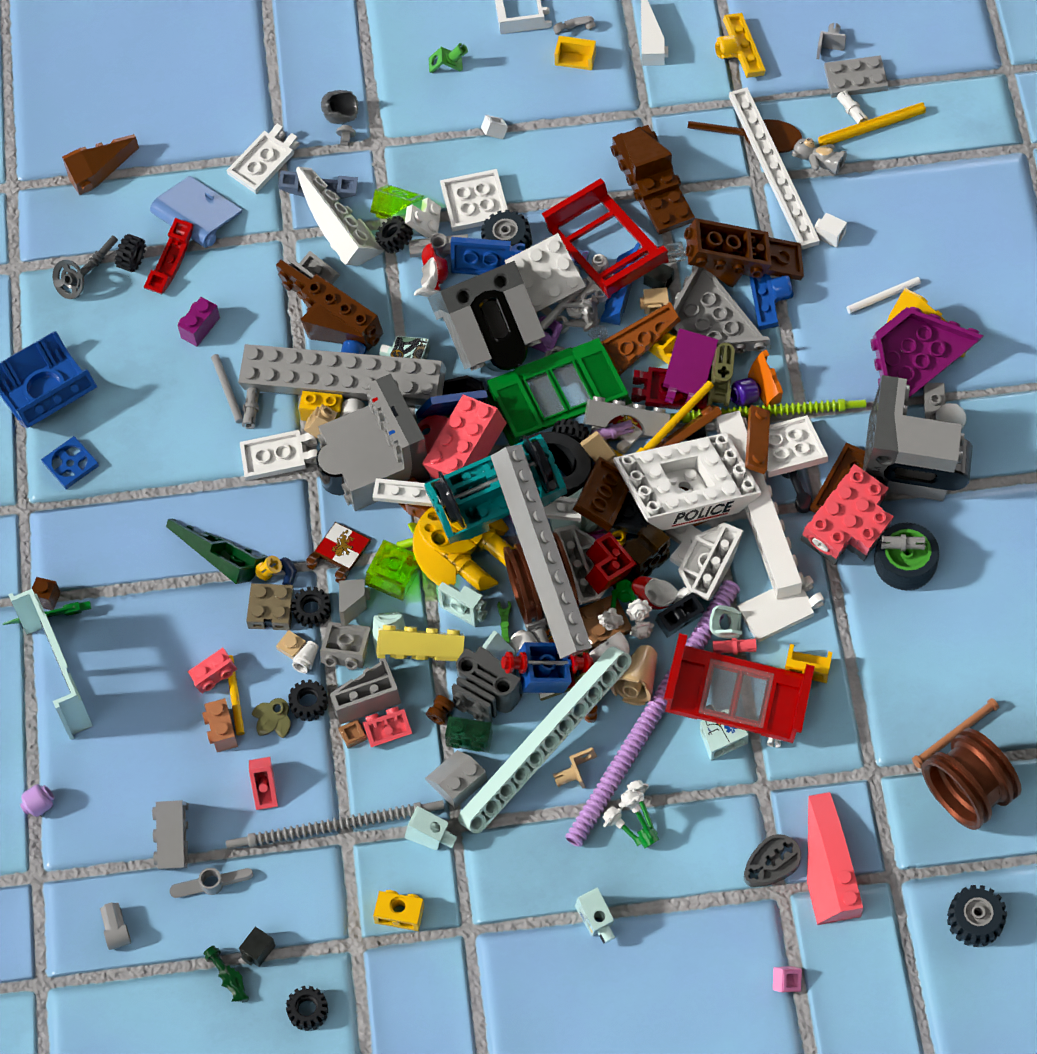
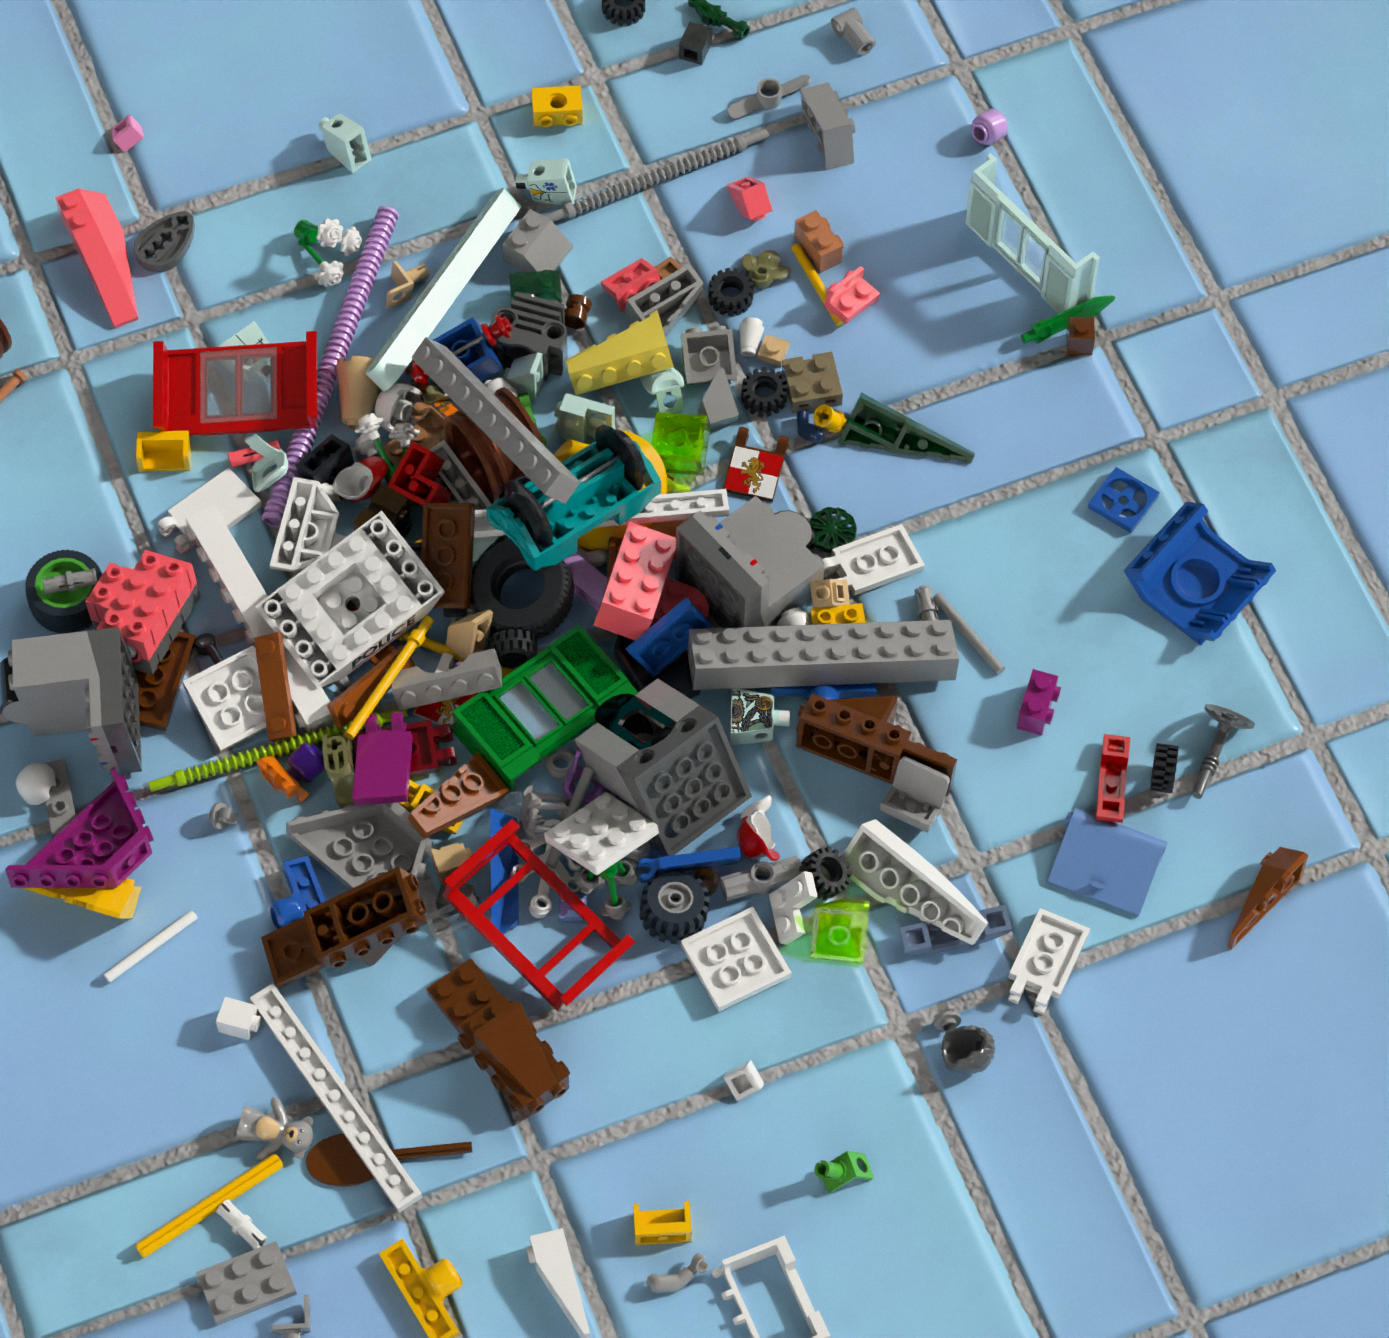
camera: 160 degrees right, 0 degrees up
(298, 486) = (832, 529): none -> dark green wheel
(815, 368) = (221, 816): none -> light grey plate

